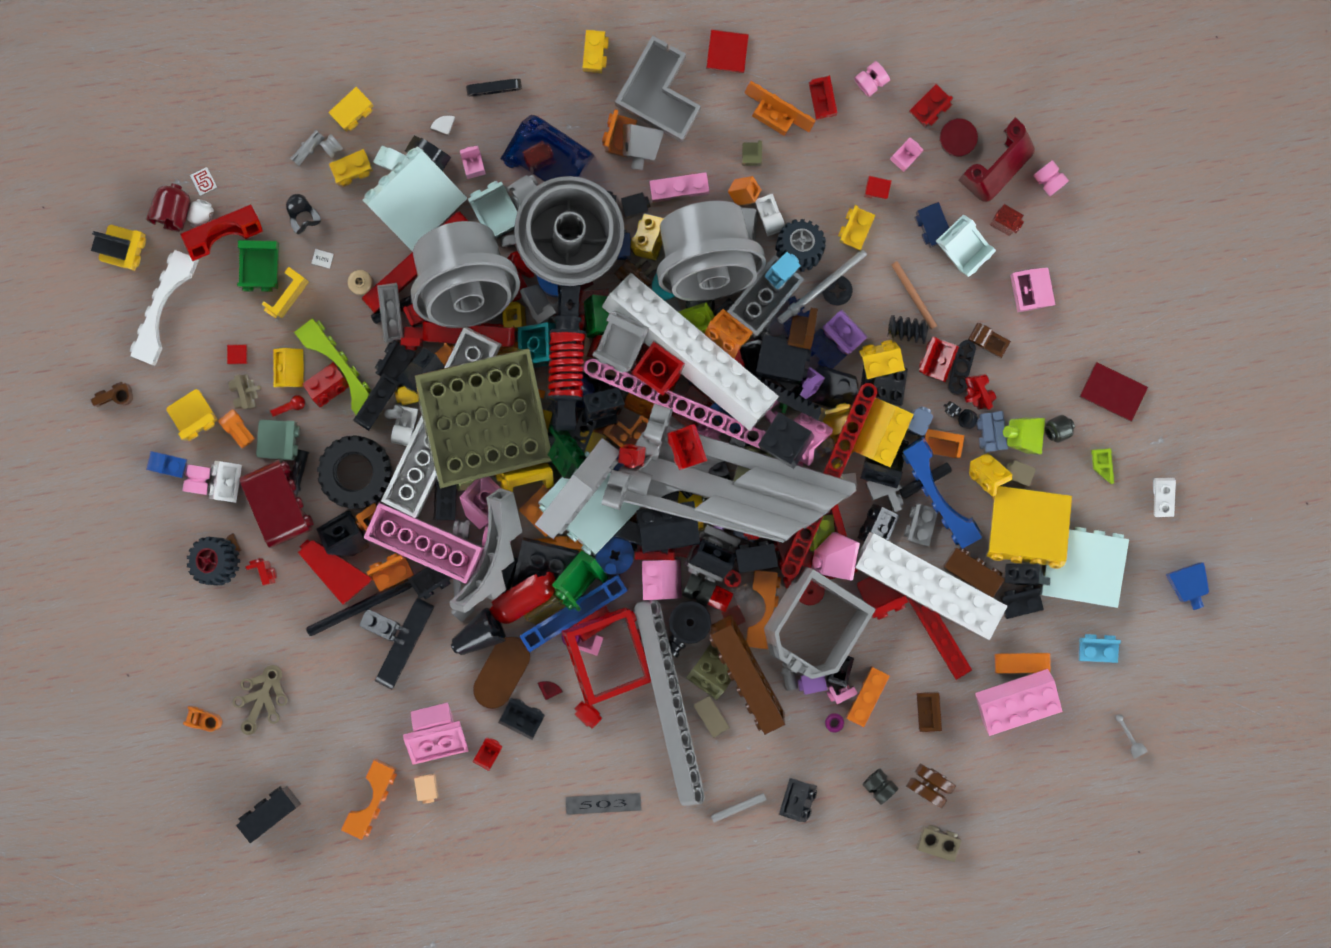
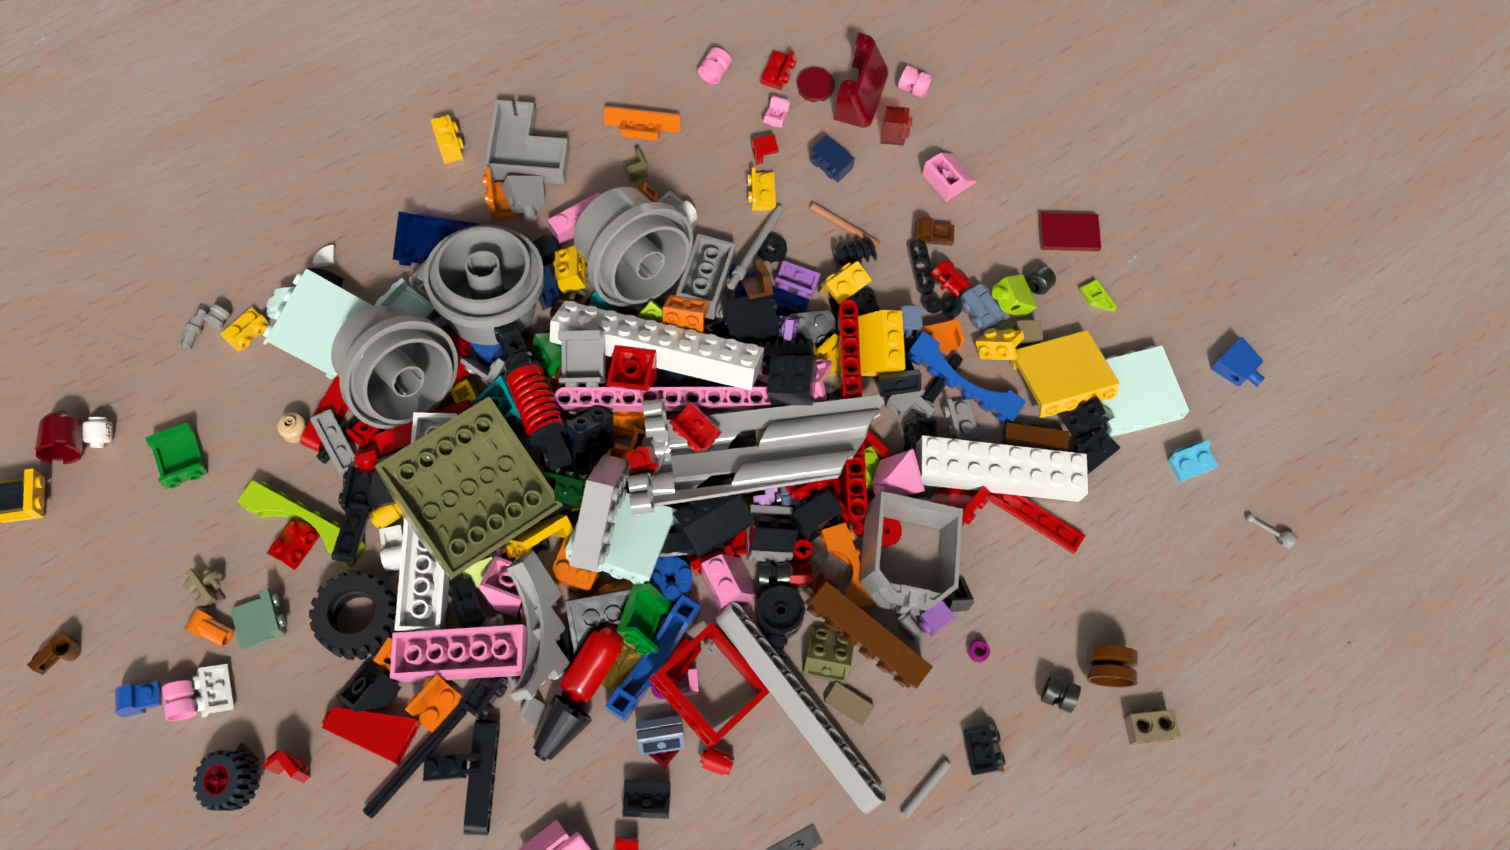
camera: 30 degrees left, 20 degrees down
(148, 343) = (79, 583): white arch -> none
(191, 415) = (152, 636): yellow bracket -> none
(203, 181) = (93, 403): white sticker -> none
(237, 354) = (184, 553): red tile -> none
(239, 222) = (105, 450): red arch -> none
(275, 503) = (280, 687): dark red windscreen -> none
(288, 367) = (245, 542): yellow panel -> none
(289, 296) = (218, 469): yellow panel -> none
(297, 204) = (200, 383): black piece -> none
(297, 403) = (267, 576): red bar -> none
(302, 456) = (294, 678): black pin -> none
(322, 258) = (246, 425): white sticker -> none
(351, 109) = (225, 276): yellow brick -> none
(395, 413) = (373, 539): light grey arm -> none
(472, 162) = (366, 274): bright pink bracket -> none
(493, 87) = (354, 208): black beam -> none
(501, 673) = (603, 760): reddish brown tile -> none
(537, 156) = (426, 238): clear red brick -> none
(552, 675) = (660, 735): none -> sand blue brick
(727, 51) = (572, 96): red tile -> none
(782, 270) = (711, 235): medium azure brick -> none
(802, 241) = (718, 218): black wheel -> none
(823, 97) = (678, 97): red hinge -> none
(844, 693) = (973, 615): bright pink bracket -> none
(867, 697) = (999, 619): orange arch -> none
(929, 712) = (1067, 595): reddish brown hinge -> none
(938, 359) = (896, 267): red bracket -> none
(965, 246) = (869, 161): light aqua panel -> none
(1018, 702) = (1149, 542): bright pink brick -> none
(1022, 662) = (1129, 506): orange beam -> none
(1164, 497) = (1169, 297): white plate -> none

